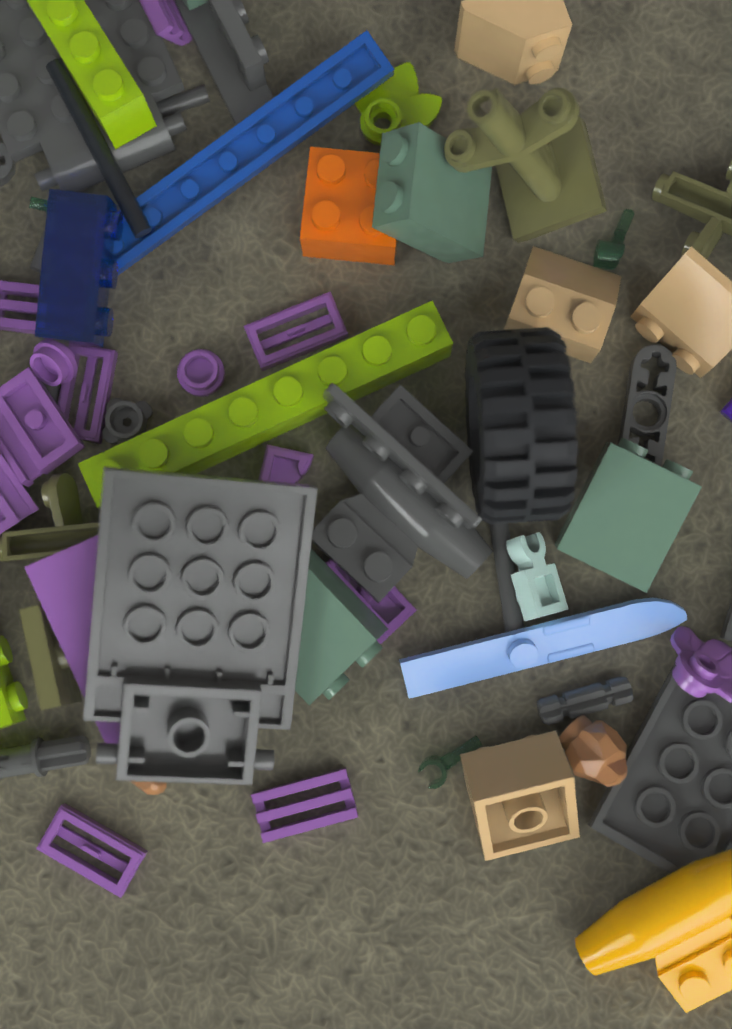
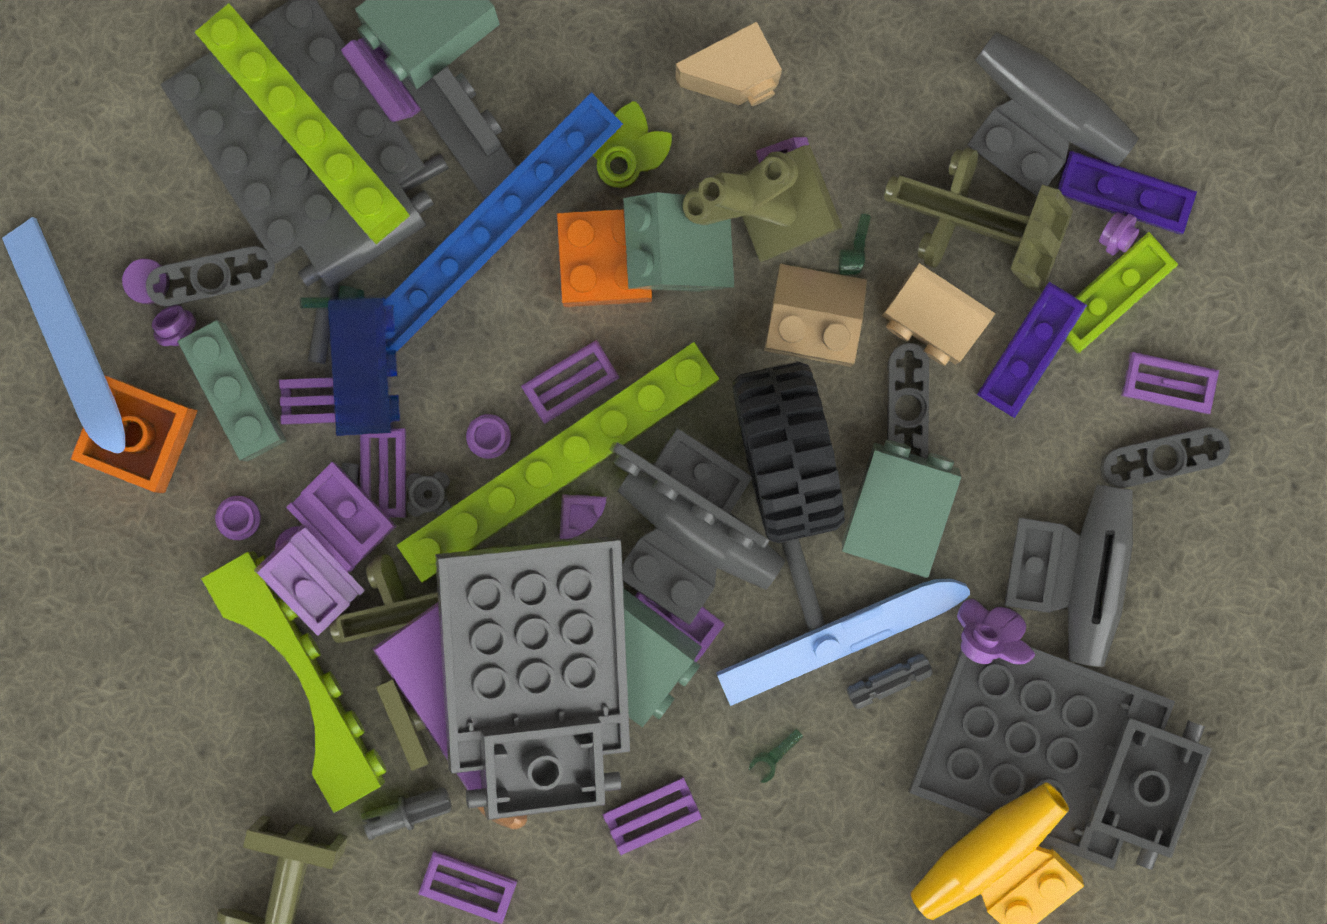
camera: 15 degrees left, 5 degrees up
(53, 362) = (353, 453): medium lavender plate -> none
(98, 148) = (360, 246): black bar -> none
(521, 795) = (844, 775): tan slope -> none
(535, 584) = (831, 583): light aqua plate -> none
(595, 751) = (903, 725): medium nougat rock -> none

